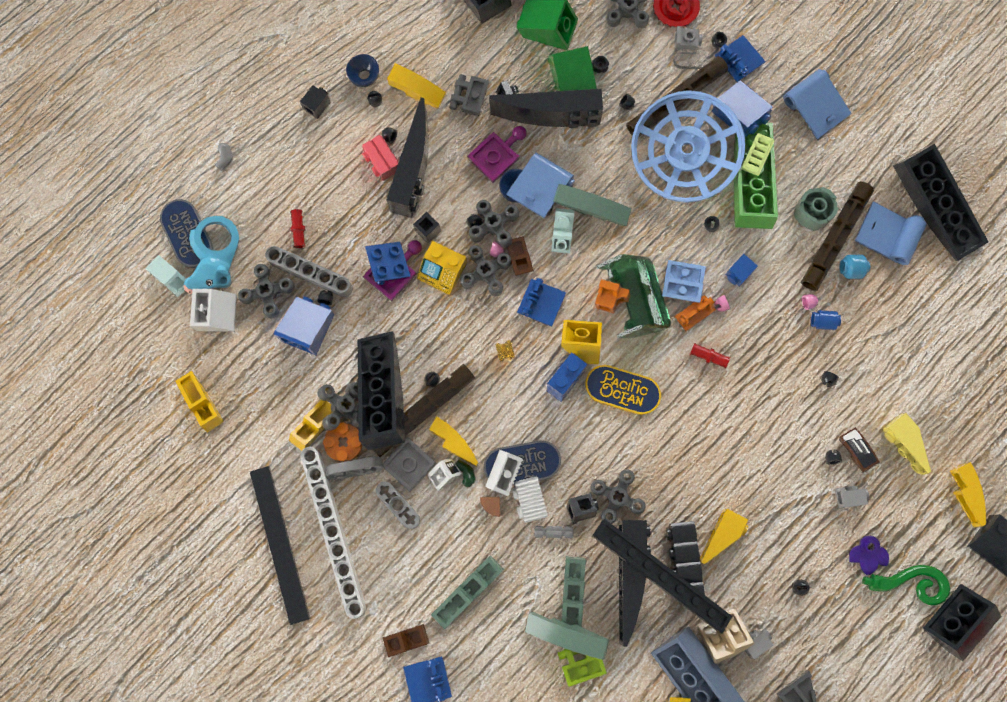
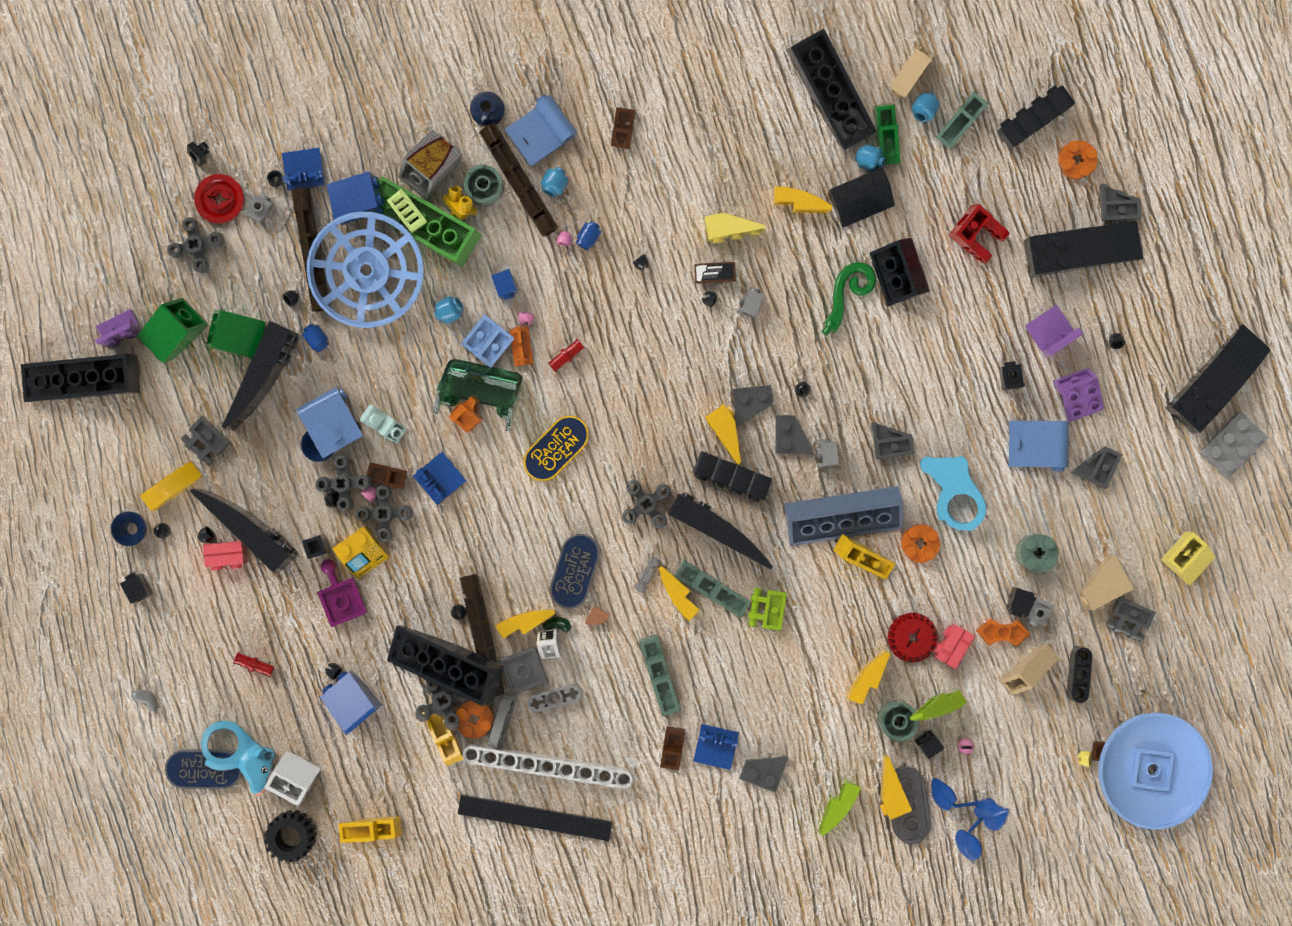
camera: 65 degrees left, 10 degrees up
(147, 327) = (279, 847): none -> black tyre
(167, 275) = (236, 805): light aqua slope -> none
(265, 284) = (290, 719): dark grey gear -> none
(302, 265) = (292, 678): light grey beam -> none
(387, 262) = (330, 599): blue hinge -> none
(494, 155) = (278, 448): magenta plate -> none
(504, 88) = (221, 406): black tile -> none
(504, 472) = (575, 593): white brick -> none
(505, 350) = (466, 534): clear yellow wheel -> none
(530, 499) = (609, 581): white brick -> none
(551, 569) = (678, 593): none -> yellow slope
(566, 377) = (520, 494): blue brick -> none
(567, 636) = (739, 610): sand green slope -> none
(582, 339) = (494, 462): yellow slope -> none
(584, 501) = (635, 535): black brick -> none
(592, 204) = (373, 385): sand green slope -> none
(600, 60) = (235, 302): black plate -> none
(605, 138) = (315, 337): none -> blue brick
(662, 576) = (731, 505): black tile -> none
(692, 234) = (448, 309): none -> dark azure head
(708, 221) = (445, 288): black hinge -> none
(730, 643) = (807, 477): tan slope -> none
(751, 599) = (790, 436): none -> dark grey wing
(762, 544) = (750, 402): none -> dark grey wing
(788, 195) = (459, 204): none -> yellow hips
(806, 154) = (429, 164): none -> slope
(816, 101) = (383, 125): medium blue door -> none
(867, 557) = (809, 317): dark purple plate -> none
(881, 187) = (494, 115): none -> dark blue piece
(936, 301) = (623, 127): none -> reddish brown slope
(941, 201) = (536, 69): black slope -> none

